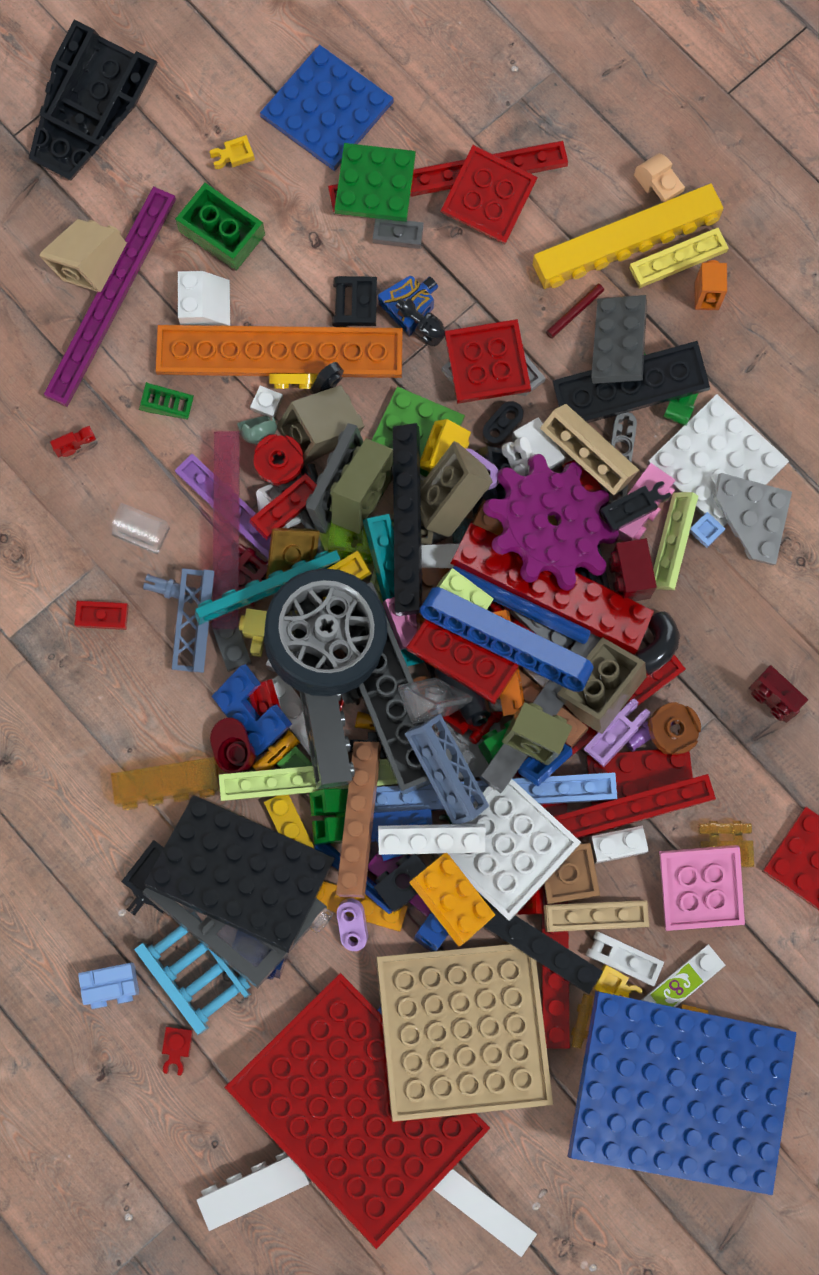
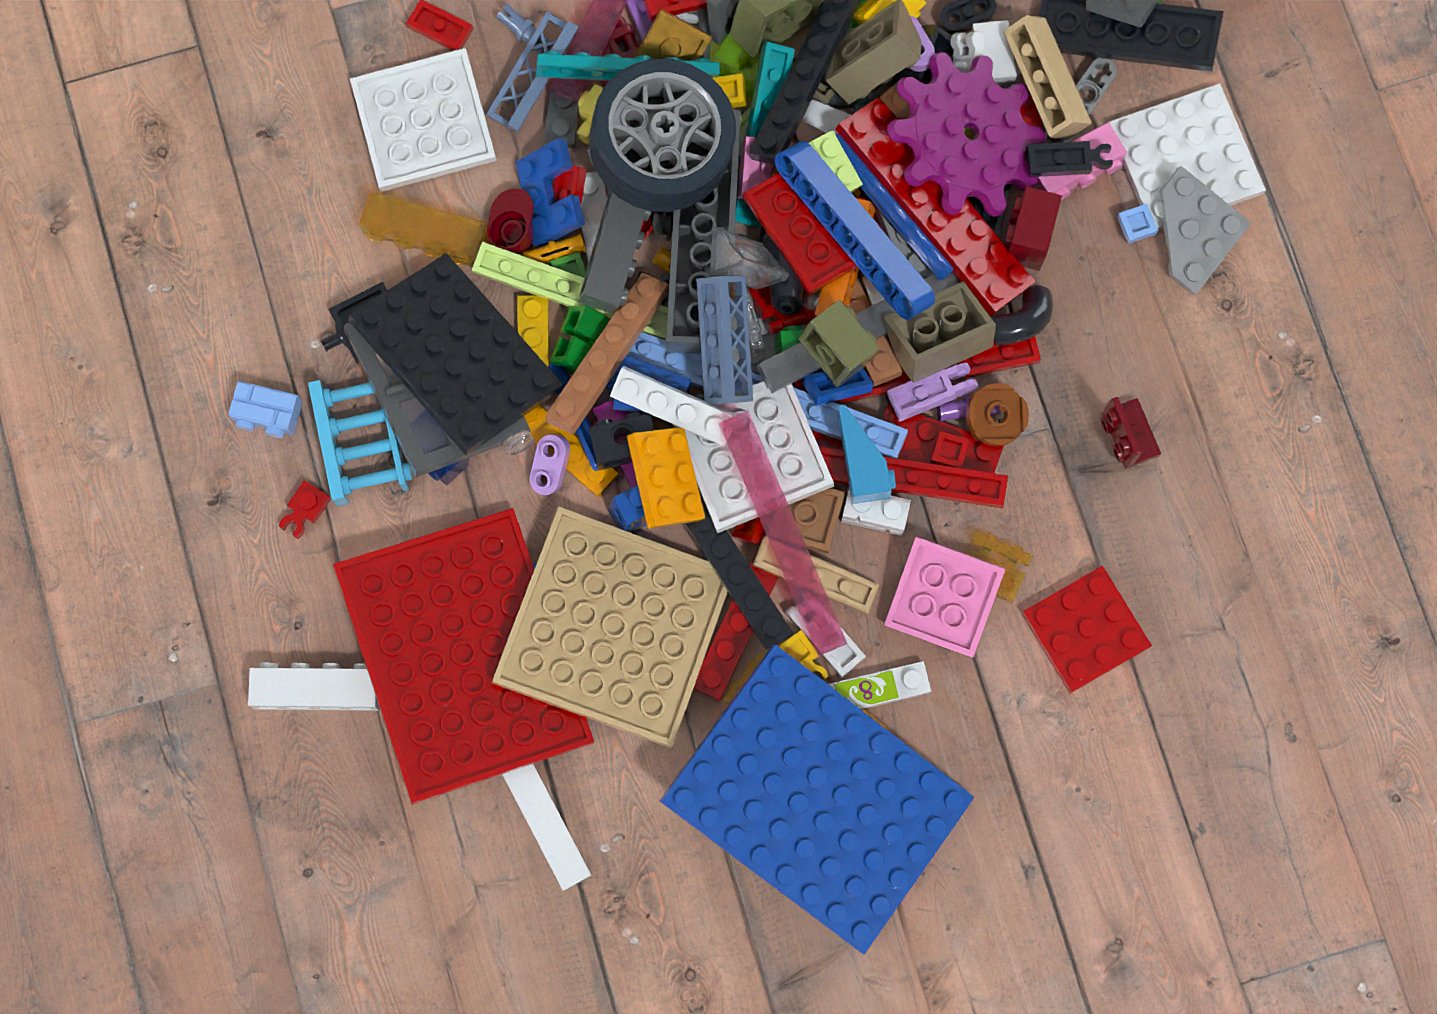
camera: 25 degrees right, 0 degrees up
(123, 695) = (423, 120): none -> white plate
(560, 899) = (782, 533): none -> clear pink plate
(598, 817) = (865, 465): none -> dark azure slope
(653, 773) = (950, 450): none -> red plate
(674, 539) = (1094, 218): yellowish green plate -> none
(681, 409) = (1173, 81): green piece -> none

